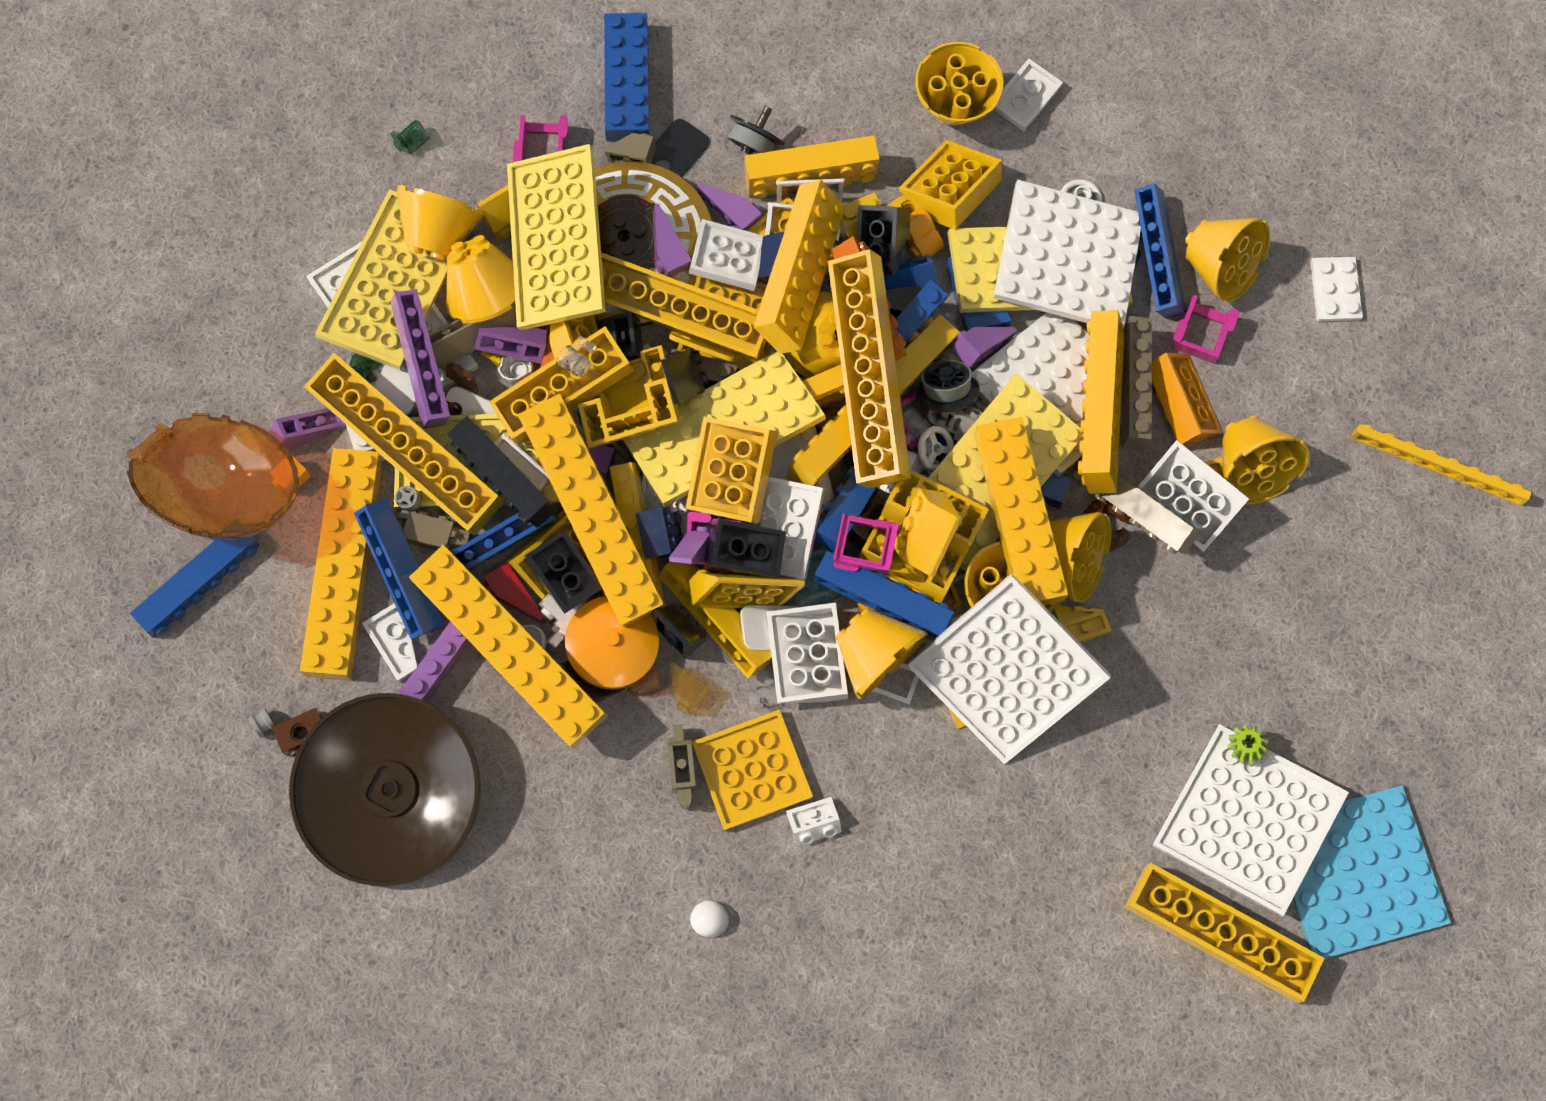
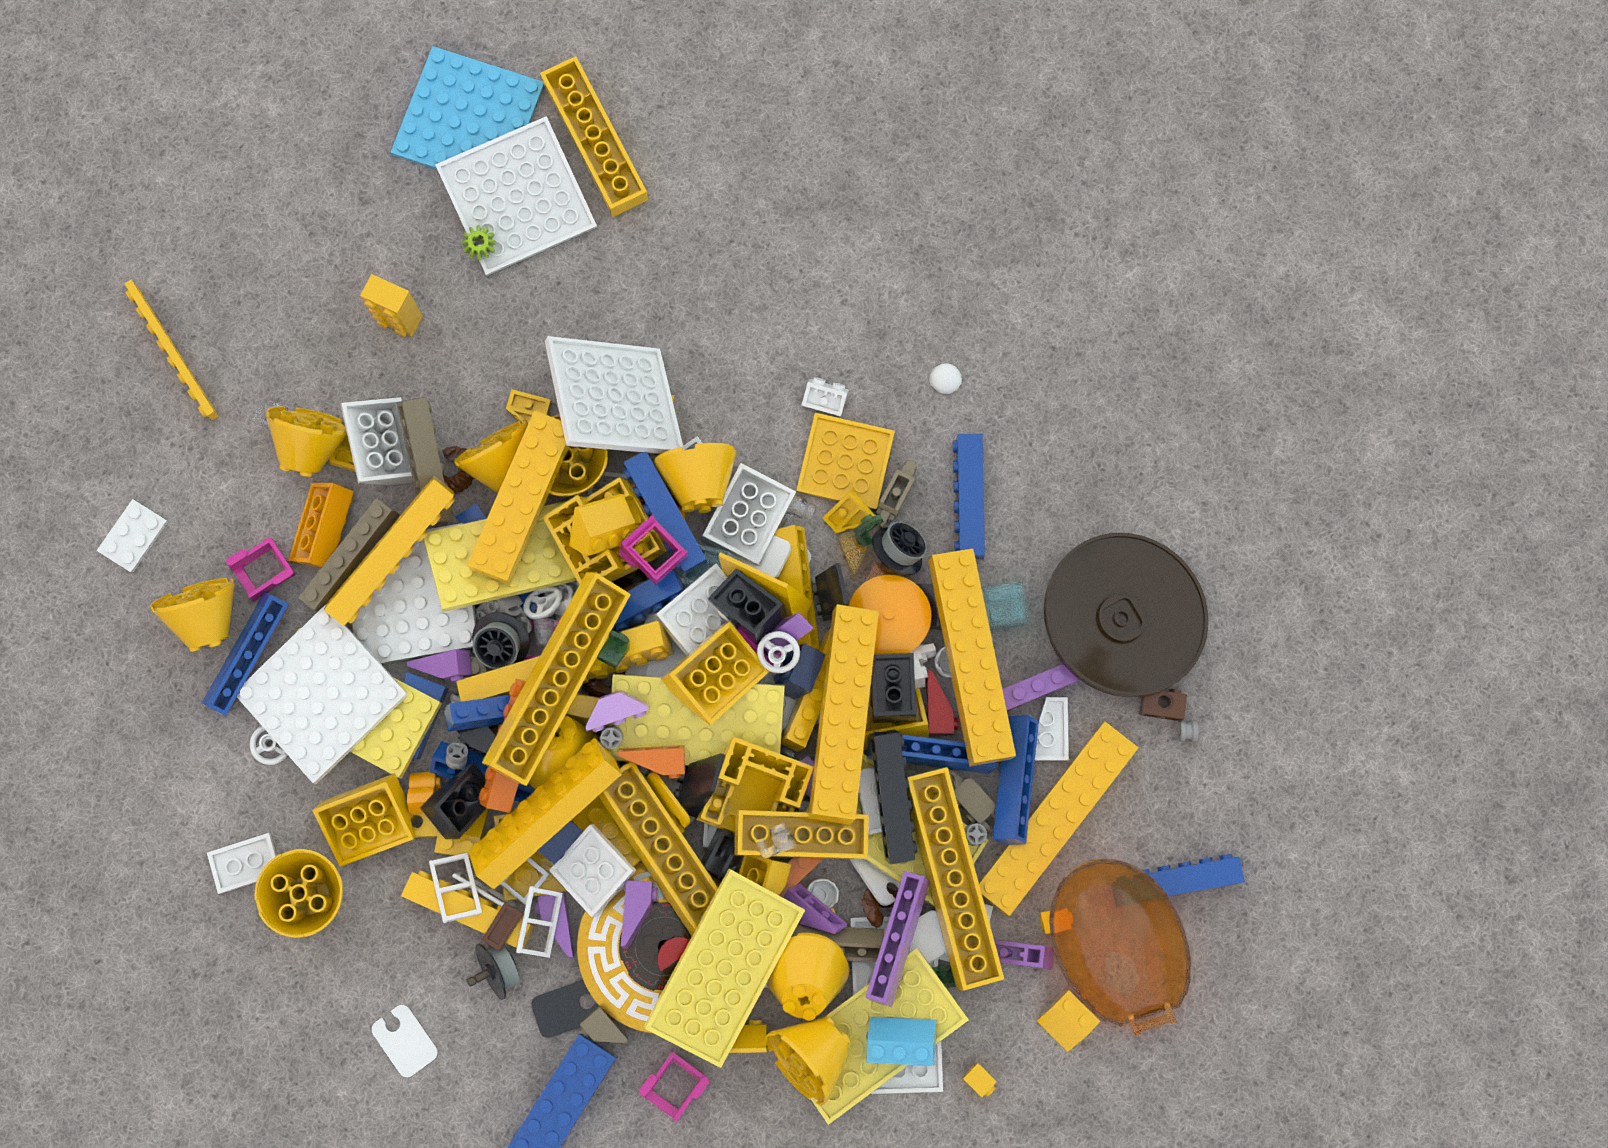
camera: 145 degrees left, 5 degrees up
(228, 398) = (1068, 1020): none -> yellow slope
(279, 304) = (980, 1080): none -> yellow brick
(363, 280) = (901, 1041): none -> medium azure slope
(510, 726) = (1005, 605): none -> clear light blue brick
(609, 813) = (970, 494): none -> blue brick
(612, 232) = (671, 951): none -> red tile
(643, 711) = (900, 548): none -> black piece
(686, 702) = (861, 531): none -> clear green bracket
(687, 522) = (777, 660): none -> white piece
(713, 718) = (847, 513): none -> yellow wing
(732, 196) = (552, 924): none -> white window
(734, 370) = (662, 759): none -> orange slope
(770, 162) = (502, 926): none -> reddish brown tile
(787, 47) = (408, 1046): none -> white piece
(790, 357) = (608, 738): none -> light grey wheel
(799, 385) = (615, 709): none -> lavender slope
(832, 170) = (439, 891): none -> white window
(836, 427) = (614, 649): none -> clear green bracket
(914, 277) = (456, 750): none -> light grey wheel
(1277, 620) = (391, 306): none -> yellow brick

